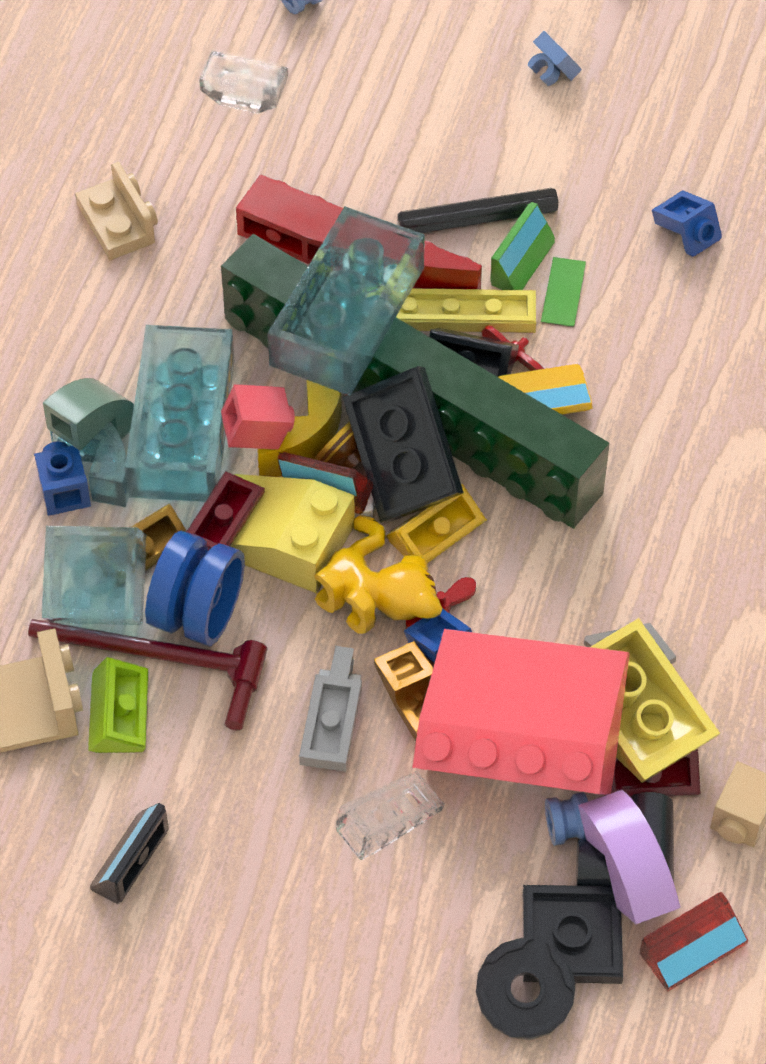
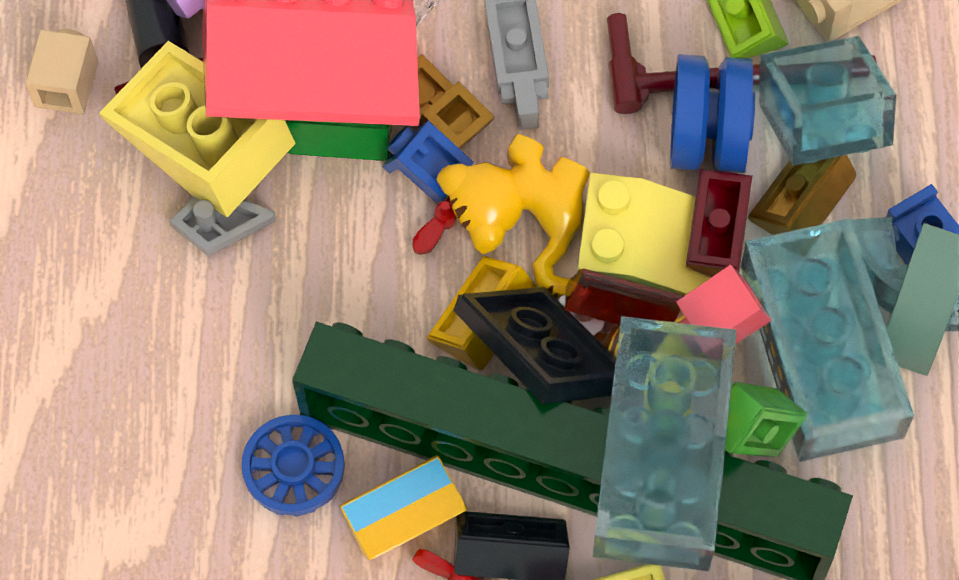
camera: 165 degrees right, 10 degrees up
(256, 324) = (761, 420): none -> bright green slope
(626, 458) = (293, 465): none -> blue wheel

